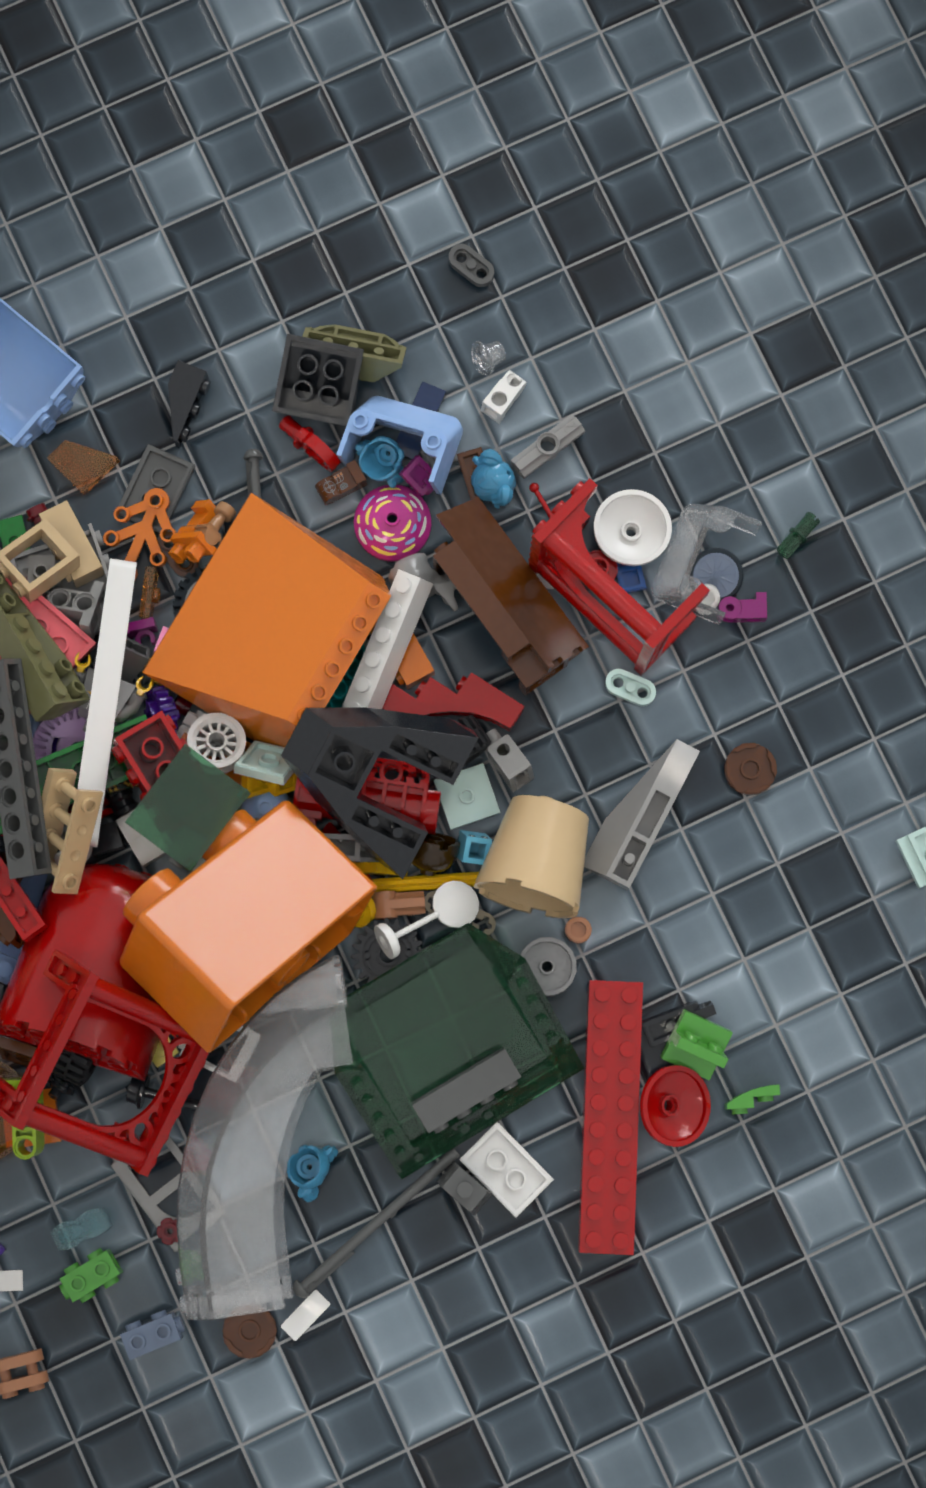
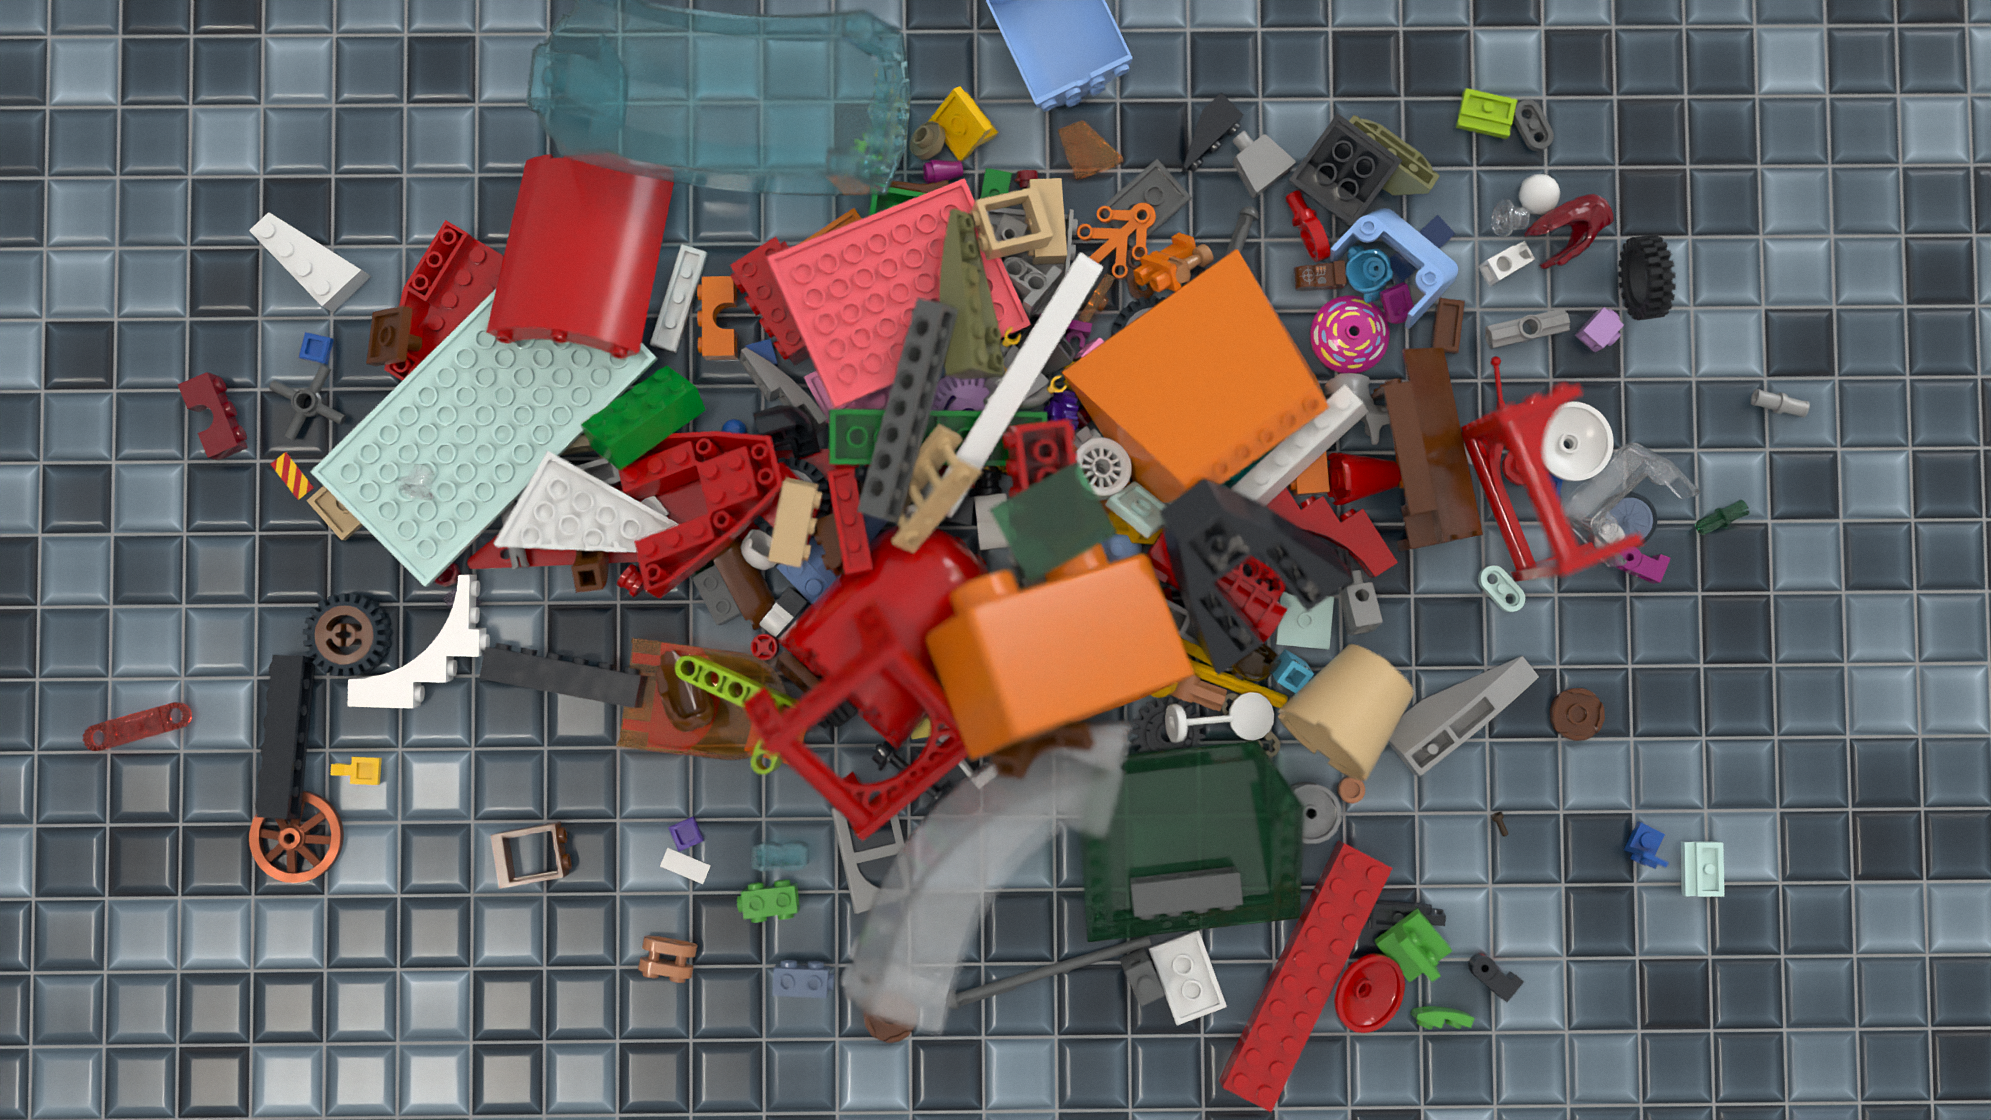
camera: 20 degrees right, 5 degrees up
(162, 1233) = (858, 886): dark red plate -> none
(242, 406) = (1260, 162): none -> light grey torso
(250, 1015) = (1016, 757): none -> reddish brown arch
(305, 1315) = (954, 1021): white sticker -> none
(308, 1179) = (1007, 905): dark azure hair -> none
(425, 273) = (1486, 113): none -> lime plate
(455, 646) = (1359, 476): none -> red cone
(493, 478) = (1463, 336): dark azure hair -> none
(505, 323) = (1539, 194): none -> white hair
(550, 322) = (1585, 215): none -> dark red hair
(613, 418) = (1600, 329): none -> lavender brick
(628, 354) = (1646, 277): none -> black tyre
(721, 895) = (1497, 817): none -> dark brown piece
(772, 1038) = (1486, 971): none -> black leg
(802, 411) = (1780, 403): none -> light grey pin
(864, 858) = (1644, 845): none -> blue bracket

